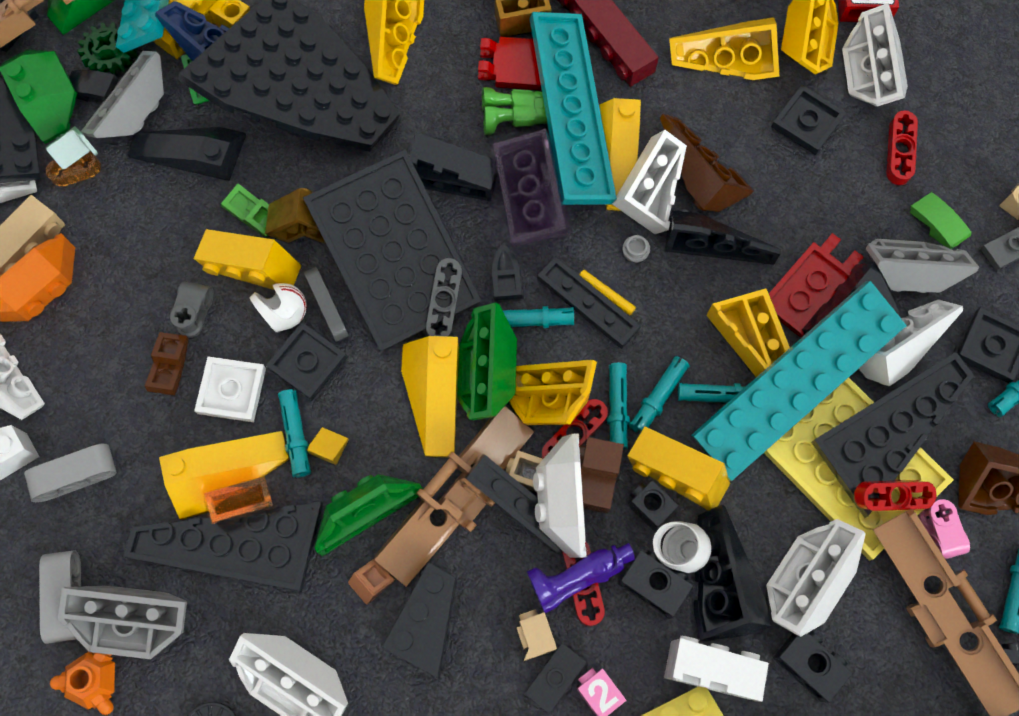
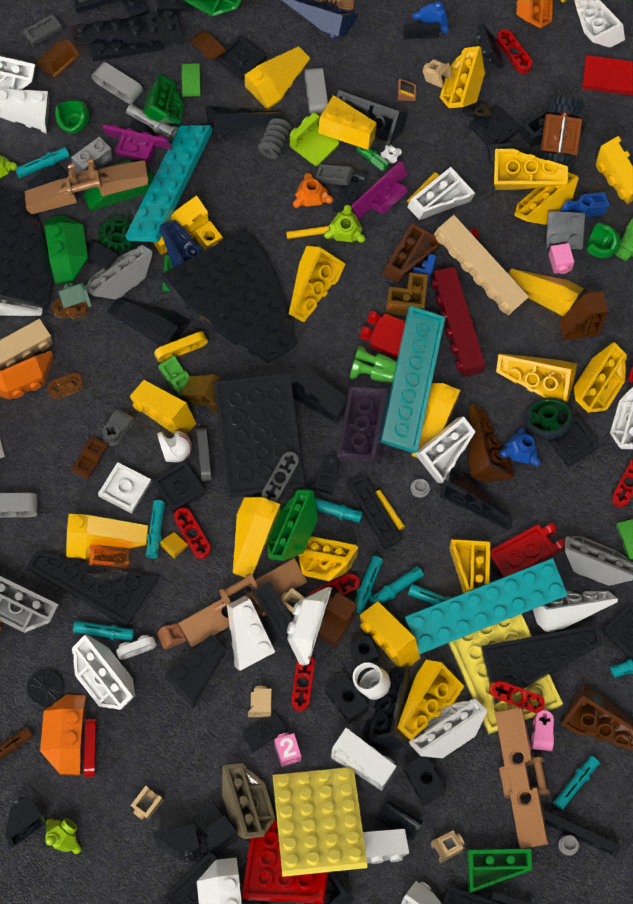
camera: 15 degrees right, 5 degrees down
(100, 275) = (65, 386): none -> clear orange beam
(244, 168) = (181, 346): none -> yellow beam
(280, 608) = (112, 632): none -> teal pin
(314, 627) = (135, 648): none -> white plate
(338, 401) = (190, 519): none -> red beam
(362, 508) = (182, 590): green wedge -> none
(481, 542) = (248, 634): none -> white wedge
(591, 569) = (300, 675): dark purple piece -> none
(749, 150) = (521, 448): none -> blue rock
(767, 99) = (548, 418): none -> dark green wheel
(768, 528) = (430, 694): none -> yellow wedge

